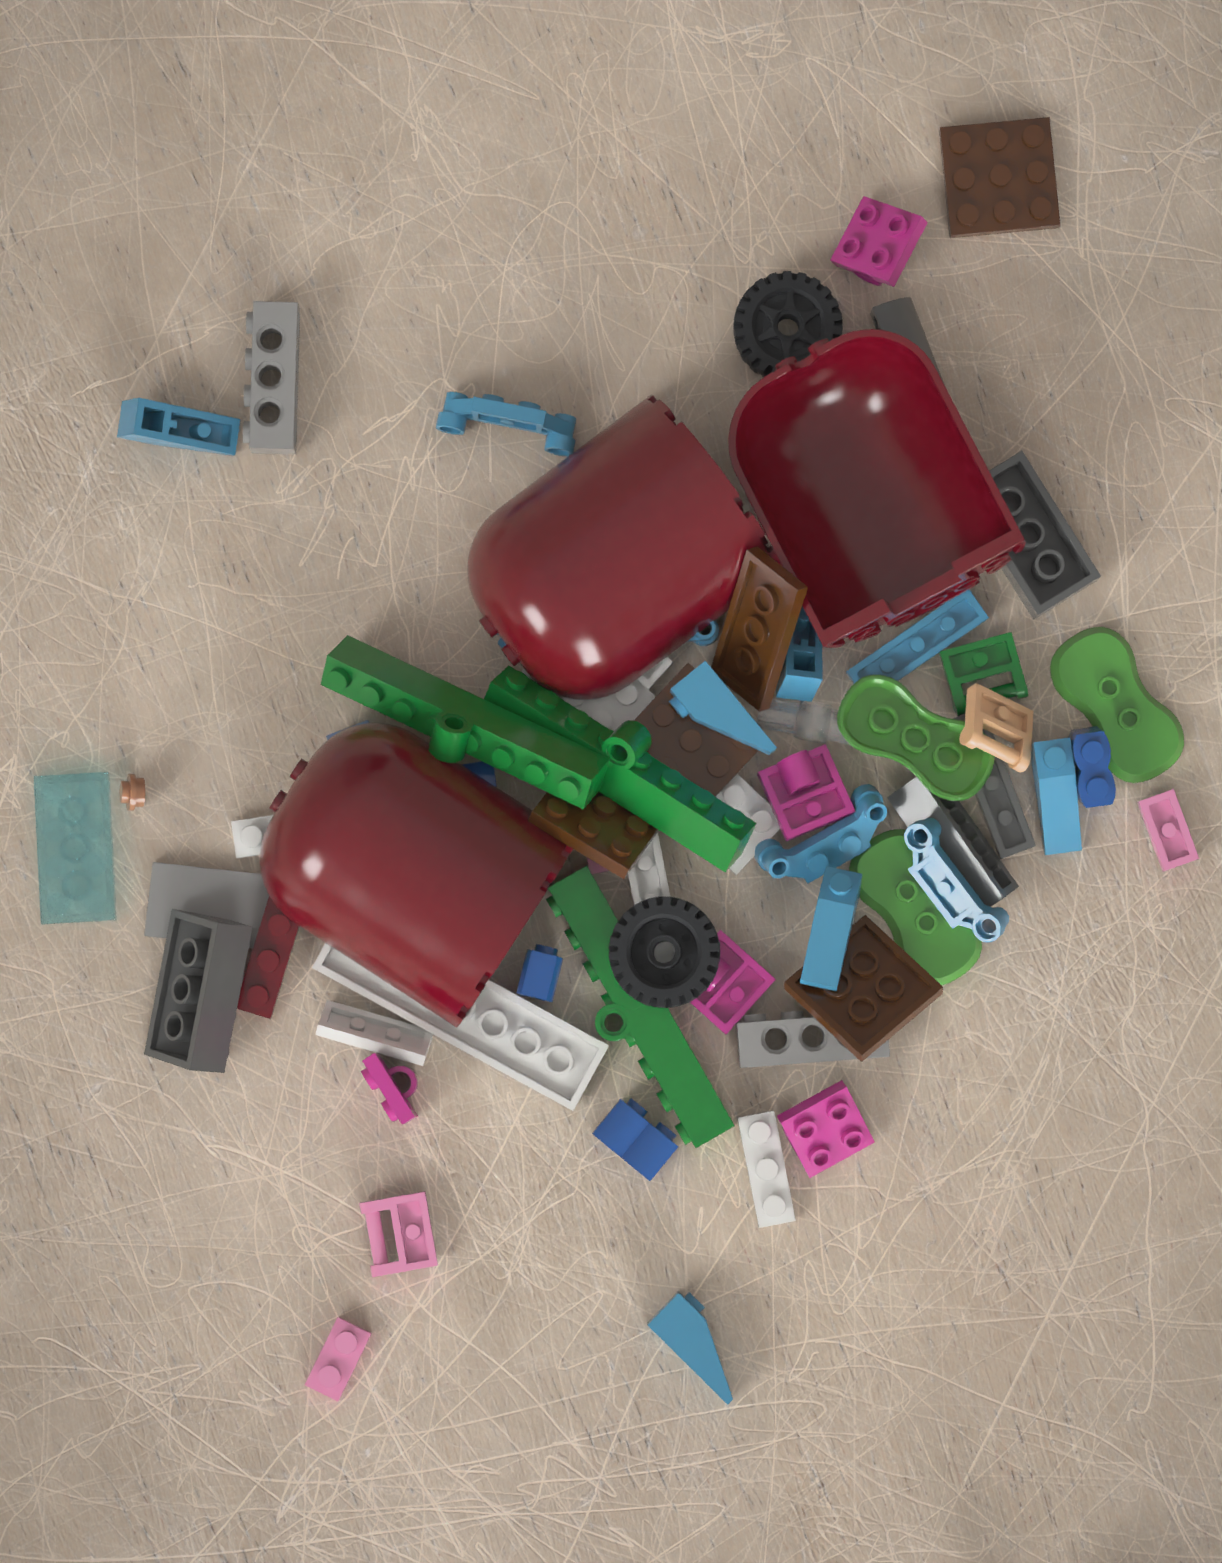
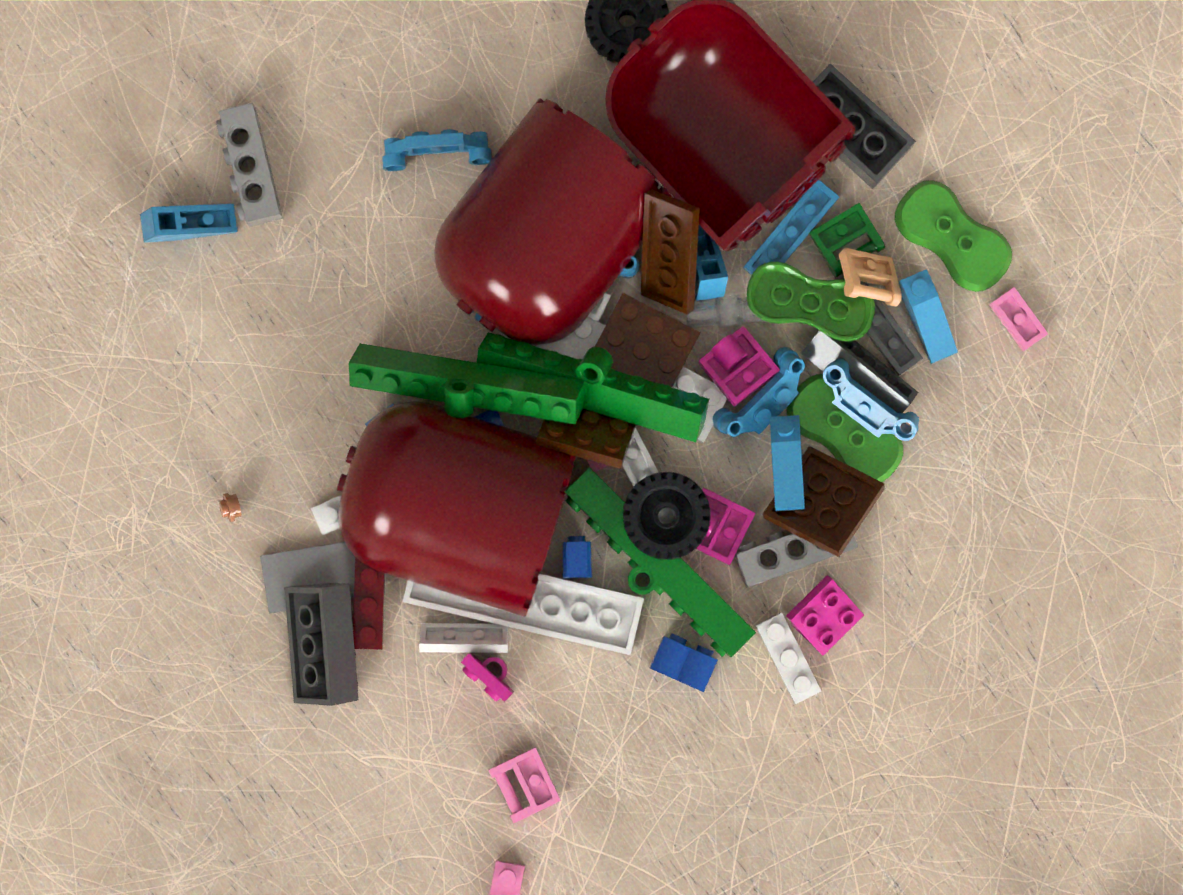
camera: 15 degrees left, 0 degrees up
(75, 848) = (198, 561): clear light blue plate -> none
(689, 1336) = (765, 800): dark azure slope -> none
(714, 706) = (652, 319): dark azure slope -> none
(1091, 758) = (947, 282): blue brick -> none

